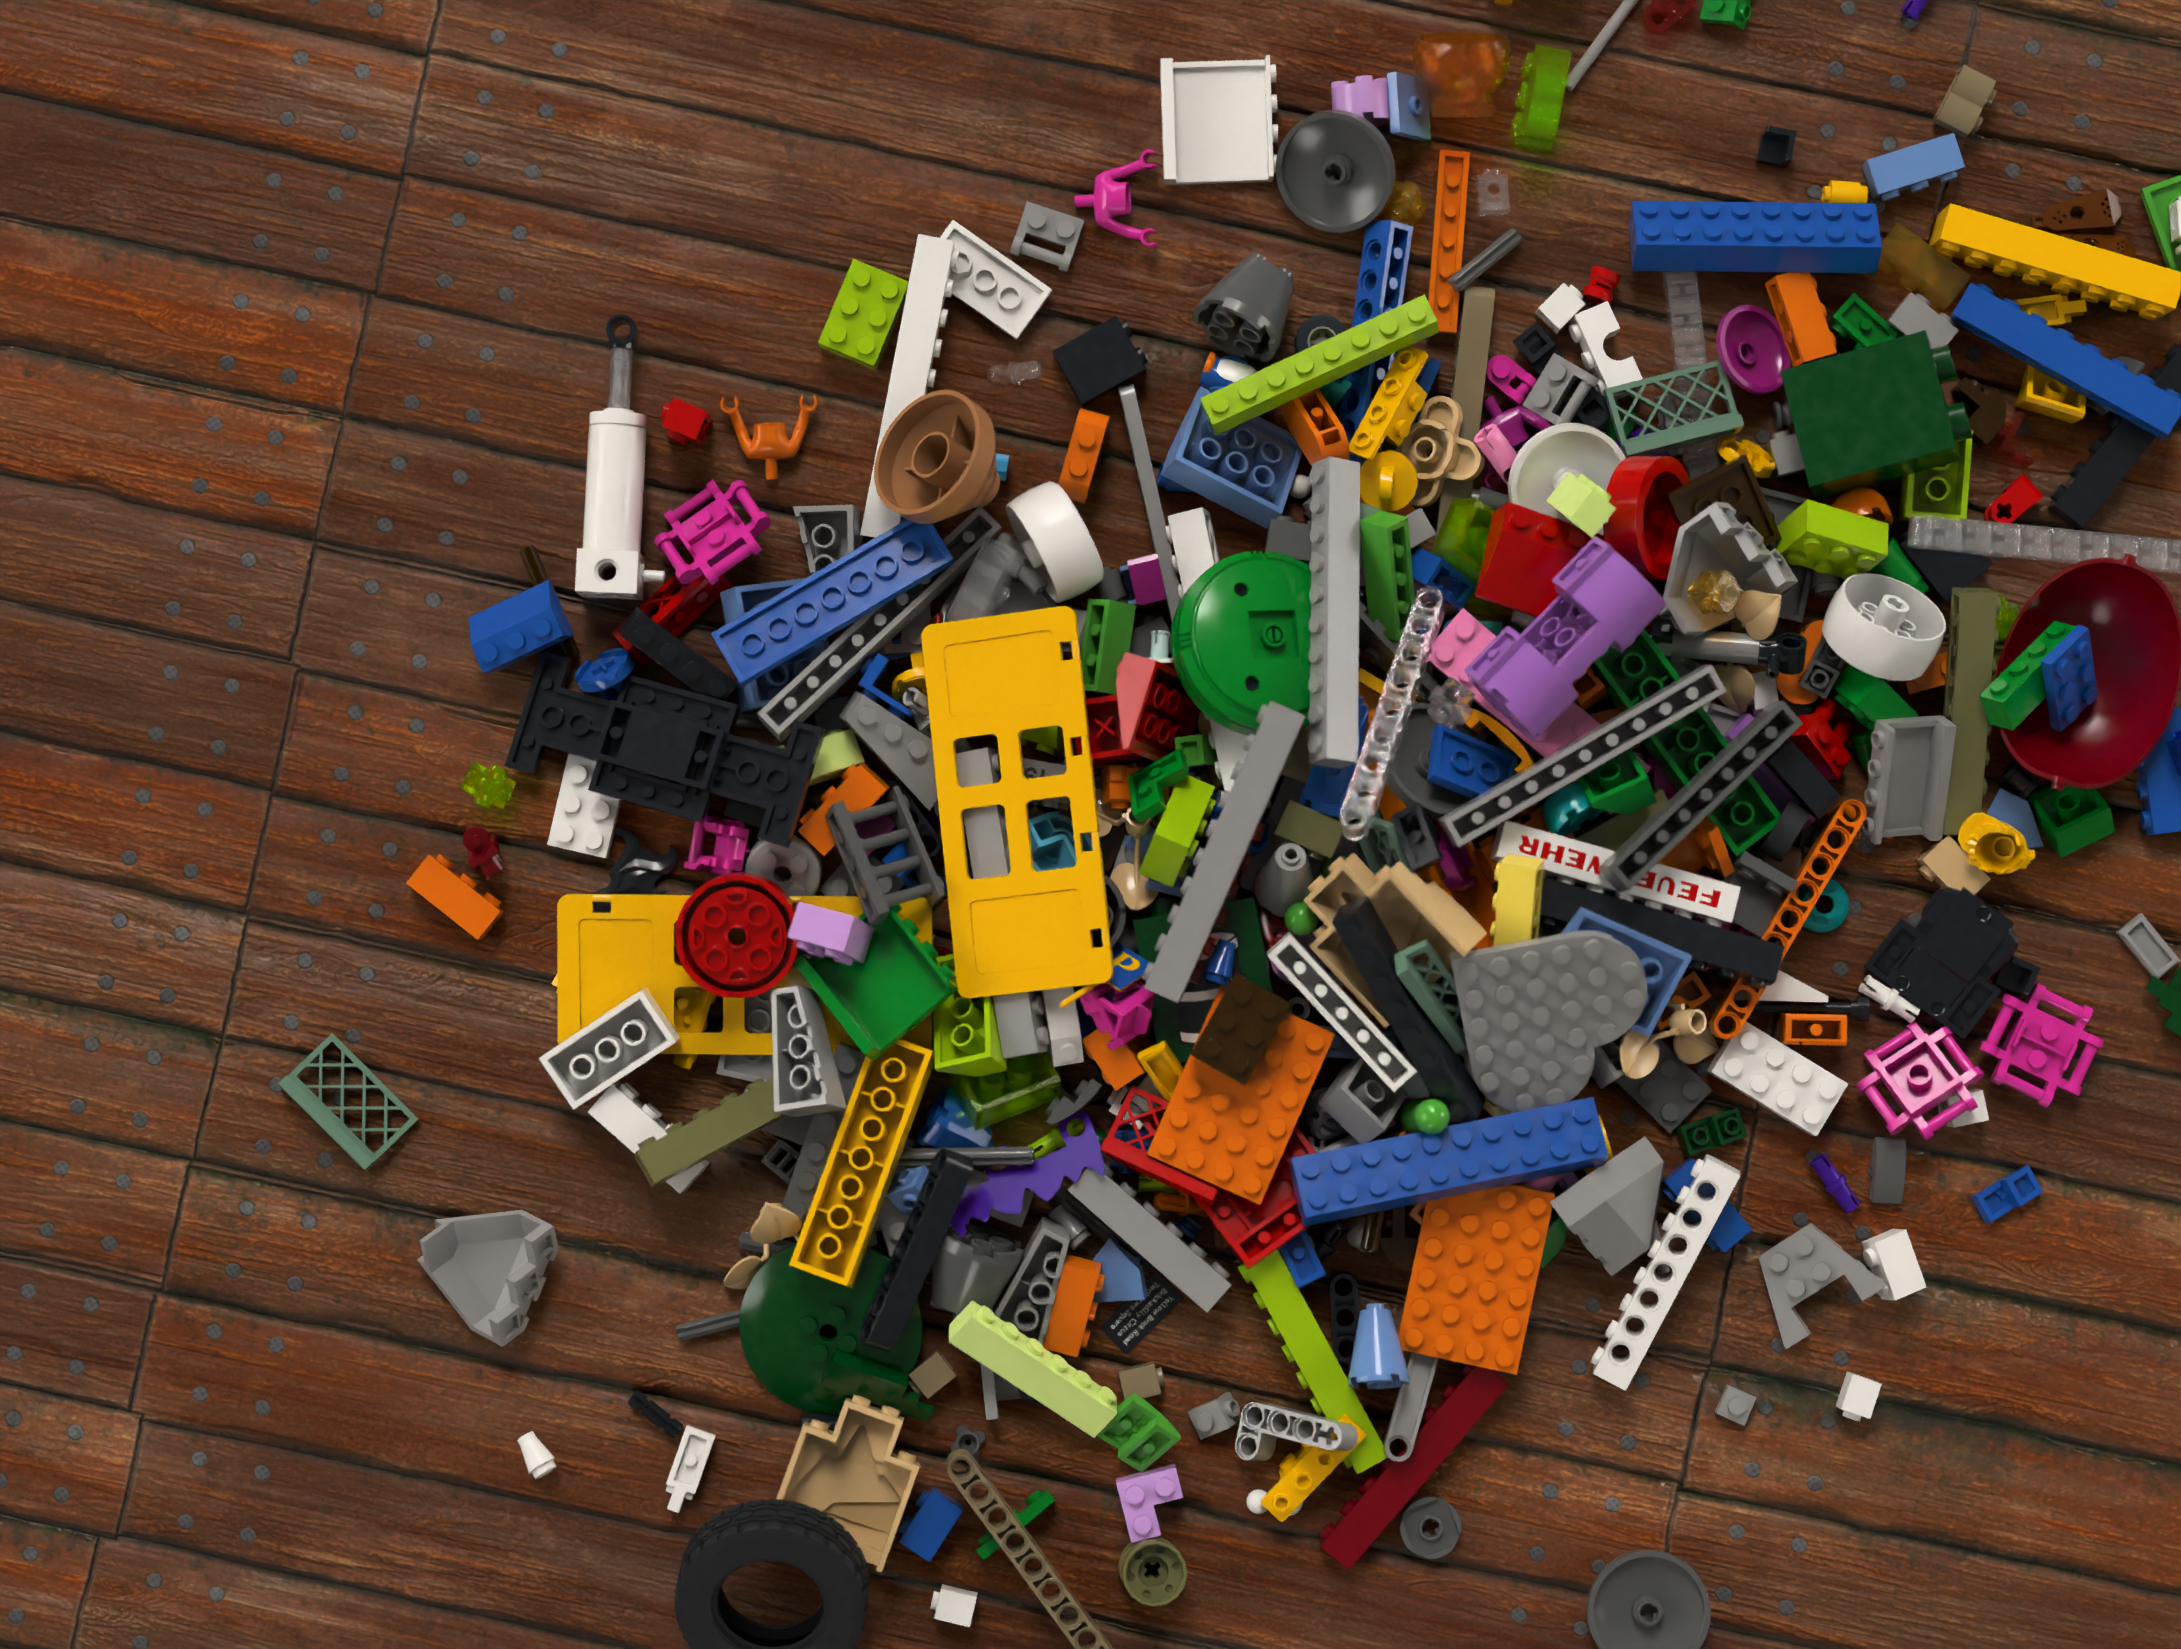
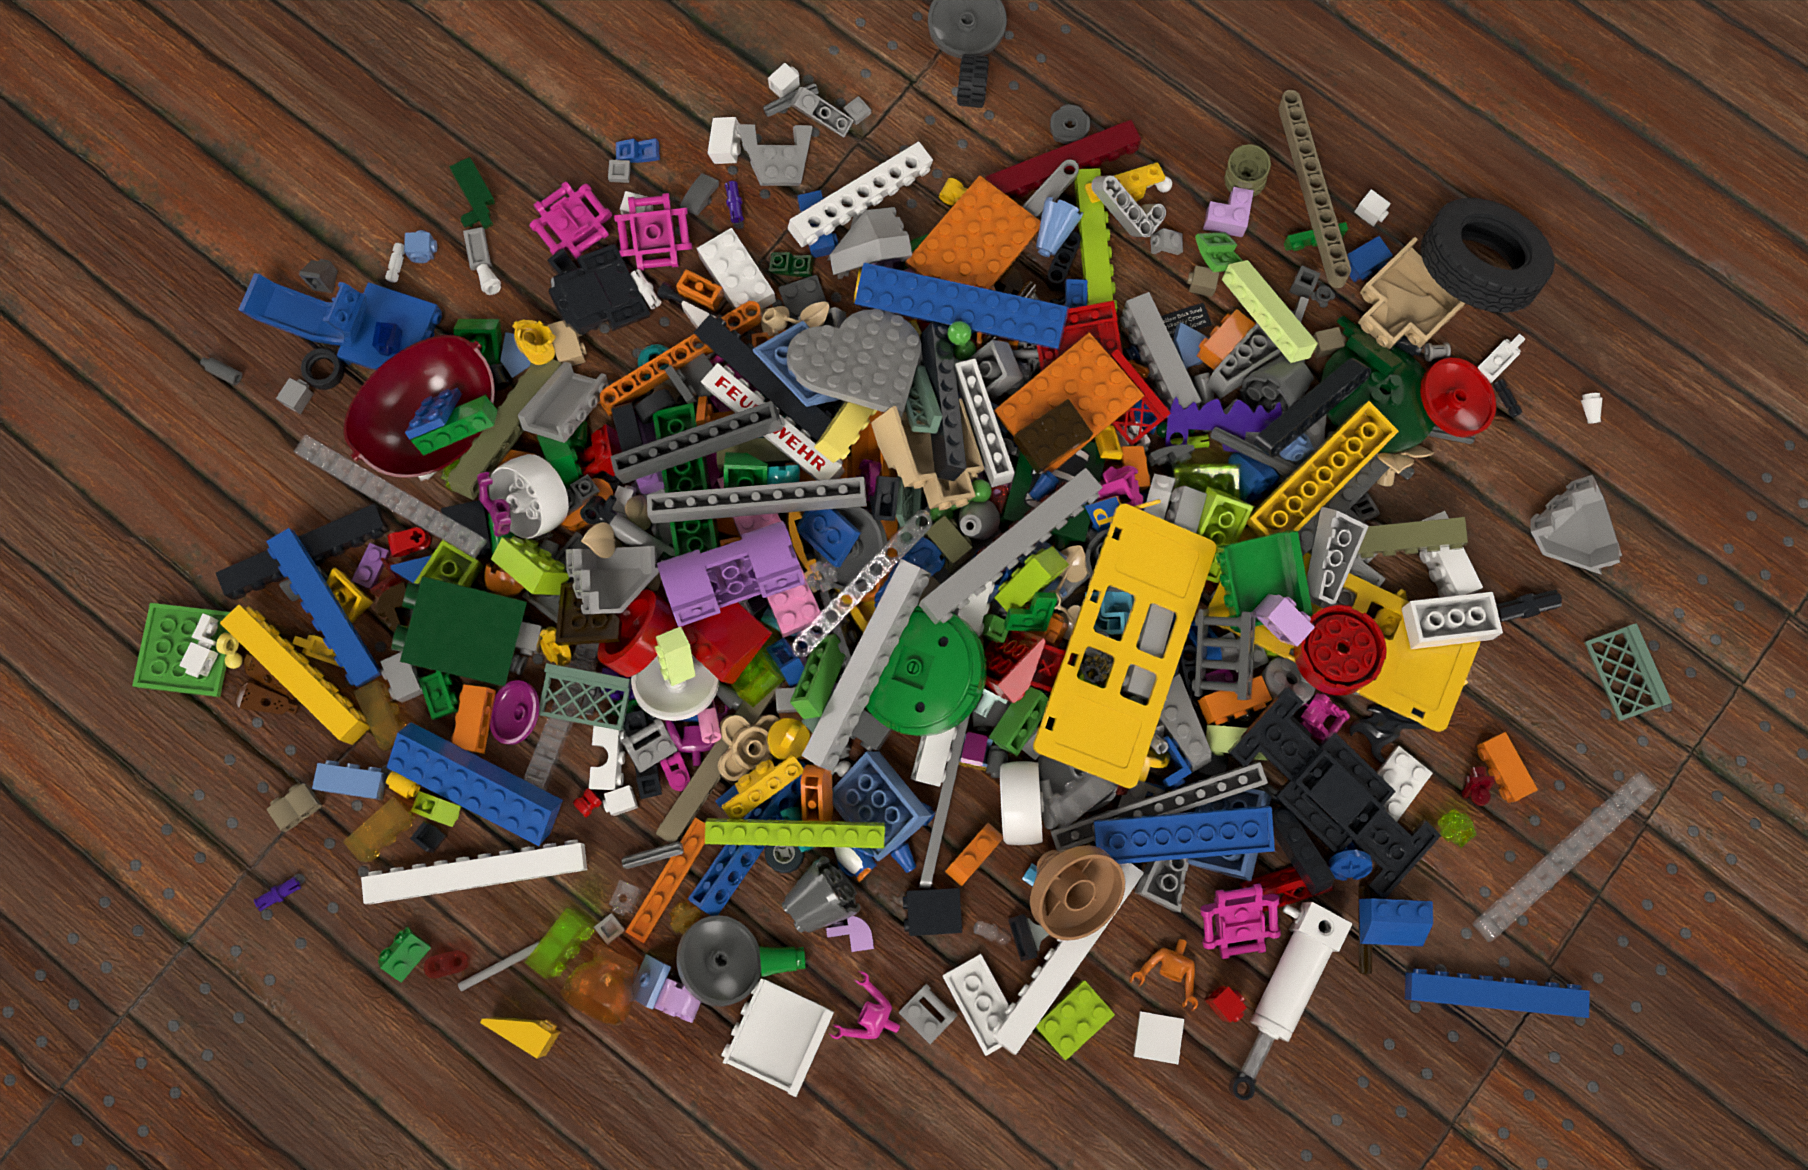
camera: 155 degrees left, 10 degrees down
(335, 818) = (1564, 856): none -> clear beam
(353, 599) = (1497, 995): none -> blue brick
(513, 1129) = (1529, 605): none -> black piece
(705, 1391) = (1458, 397): none -> red dish
(749, 346) = (1158, 1037): none -> white tile
(778, 1434) = (1437, 351): none -> light grey bush
(968, 381) = (1026, 936): none -> black piece
(1001, 1443) = (1304, 282): none -> dark grey brick
(1042, 747) = (1095, 668): none -> black gear
(1169, 411) = (904, 857): none -> blue cone
(1178, 289) = (858, 930): none -> lavender brick
(1260, 211) = (781, 959): none -> green plant
(1491, 147) = (609, 928): none -> light grey plate
(1542, 1344) = (952, 191): none -> yellow piece
(1595, 1517) = (972, 81): none -> black tyre
(1695, 131) = (473, 873): none -> white brick
(1715, 592) = (620, 565): clear yellow brick -> none
(1784, 1374) = (821, 111): none -> light grey slope
(1787, 184) = (436, 809): none -> lime slope
(1835, 1375) = (783, 102): none -> dark grey axle
(1841, 126) = (380, 830): none -> clear yellow brick
(1912, 589) = (498, 509): none -> magenta piece
(1985, 466) = (411, 569): none -> blue slope
(2015, 1150) = (619, 171): none -> light grey plate
(2044, 448) = (370, 566): none -> medium lavender plate
(2107, 907) = (489, 282): none -> white cone
(2161, 253) = (228, 645): none -> light yellow plate

